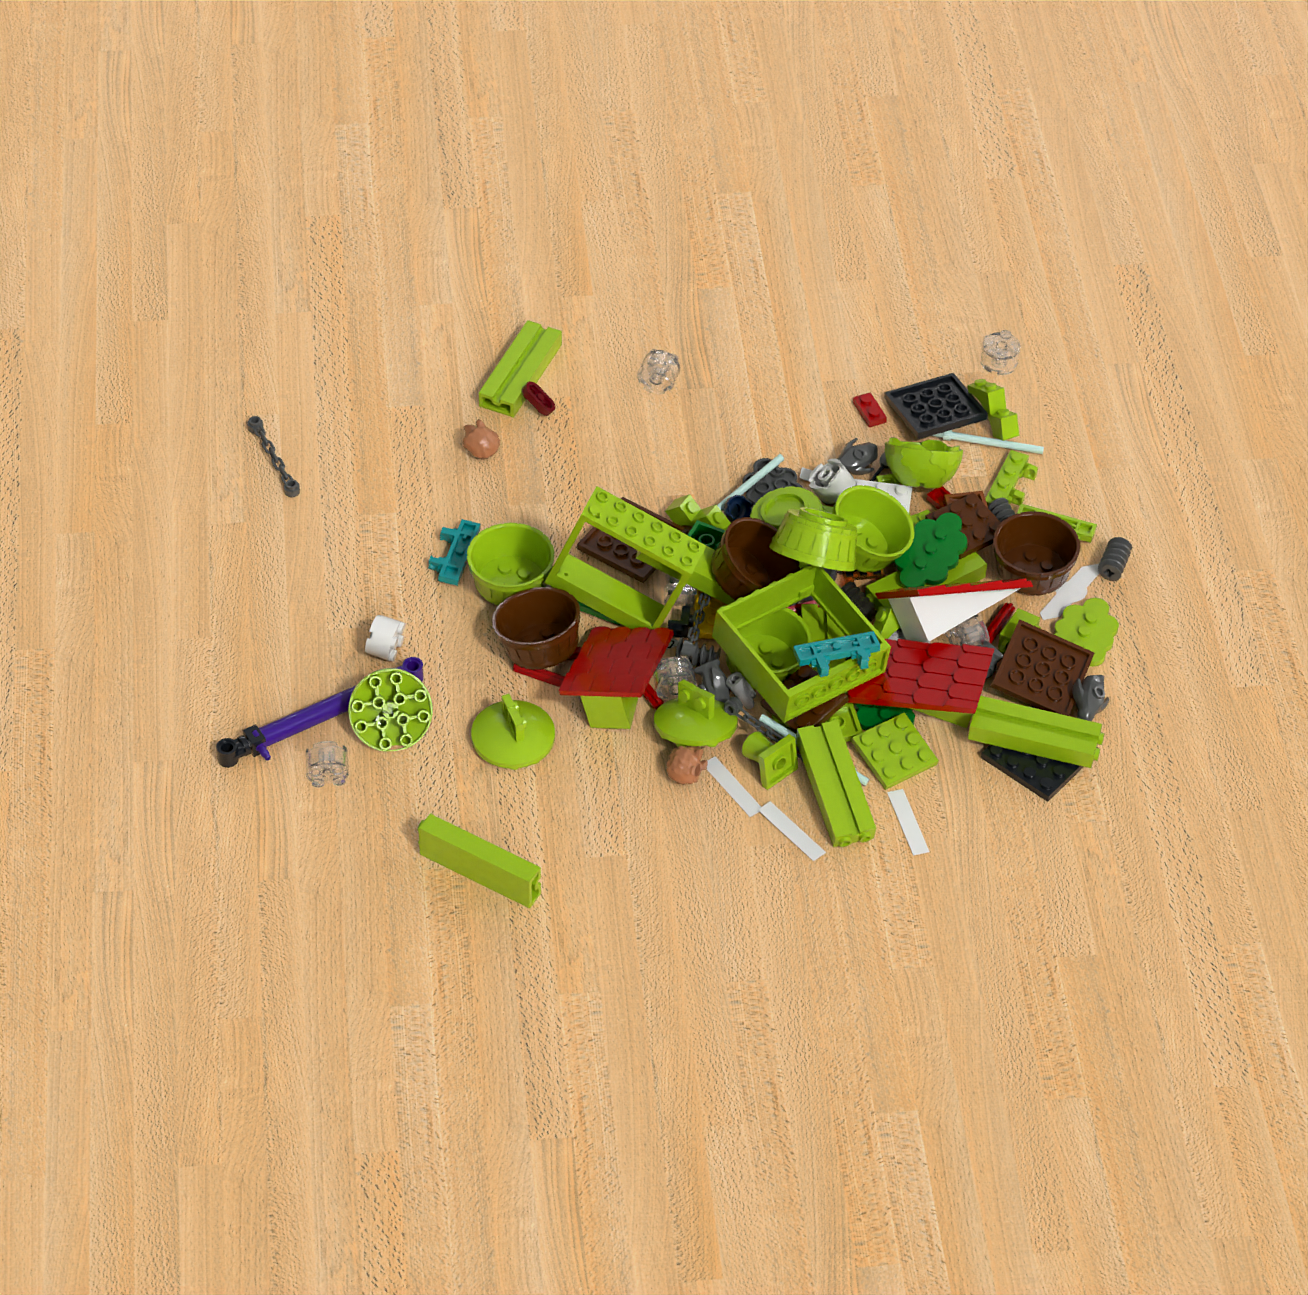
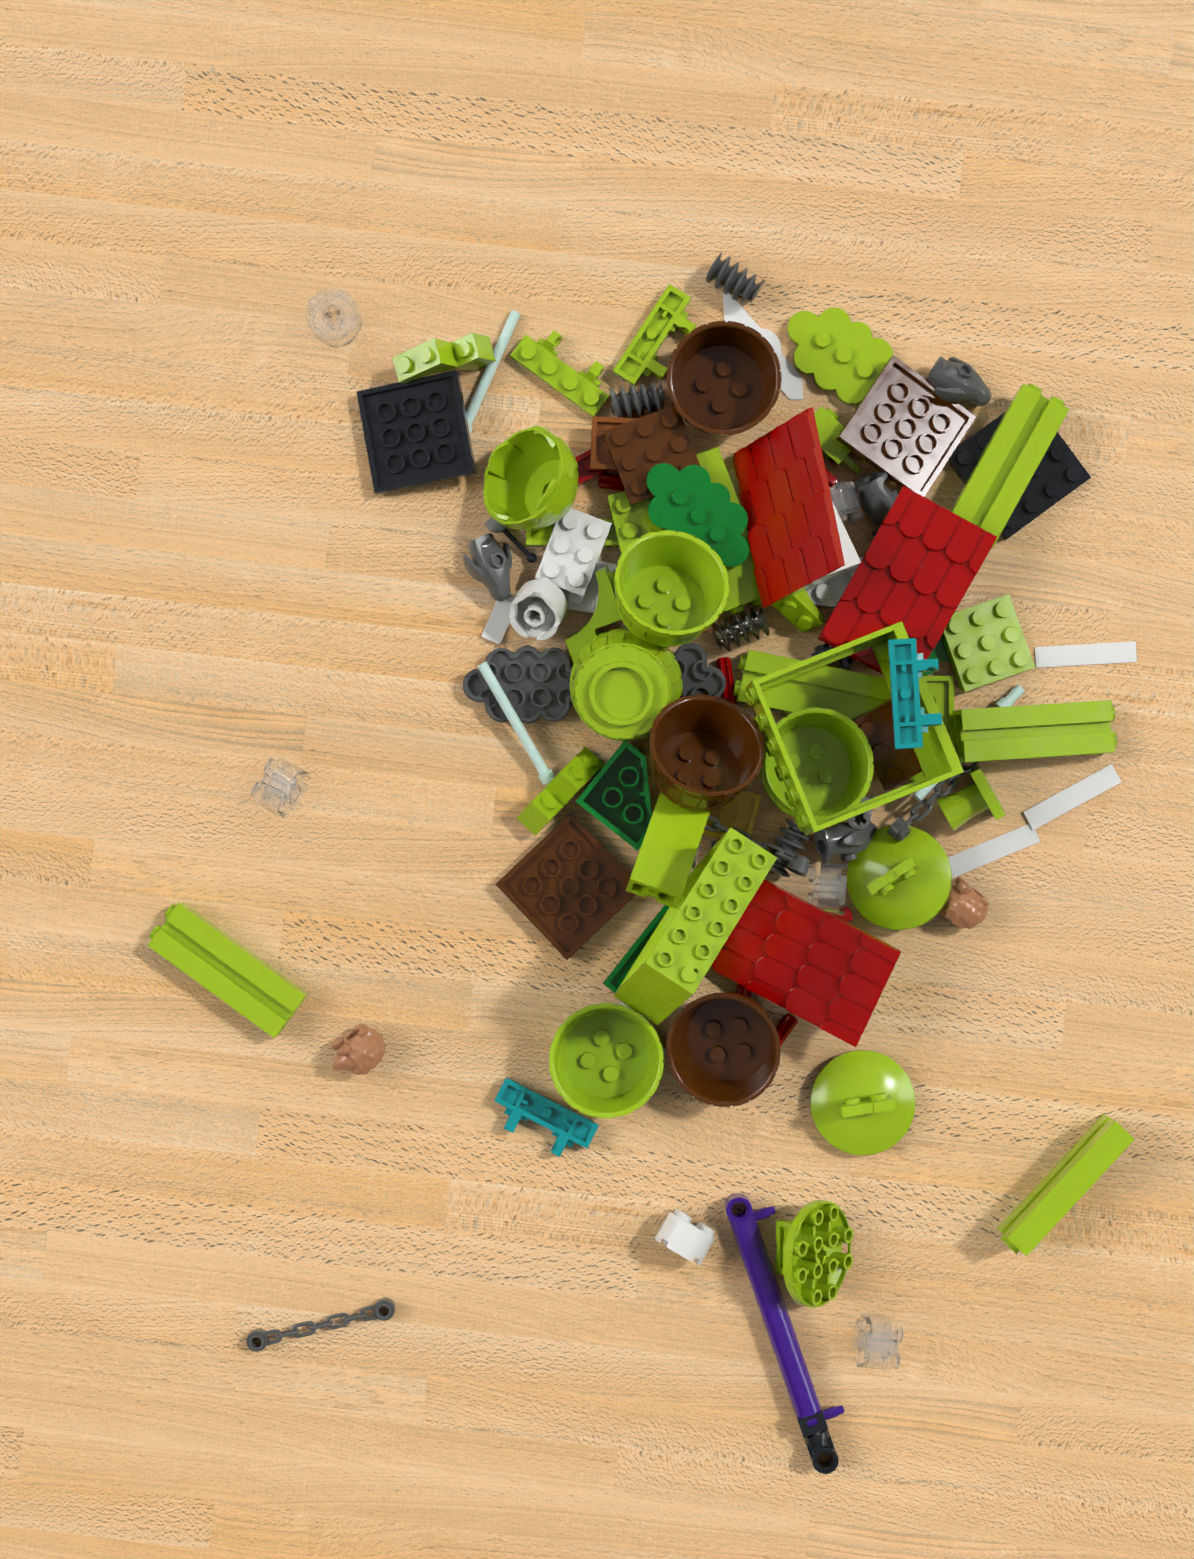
camera: 70 degrees left, 40 degrees up
(538, 398) = (293, 959): dark red plate -> none
(737, 507) = (553, 739): dark blue hair -> none
(817, 539) = (724, 676): lime piece -> none
(869, 409) = (395, 519): red plate -> none

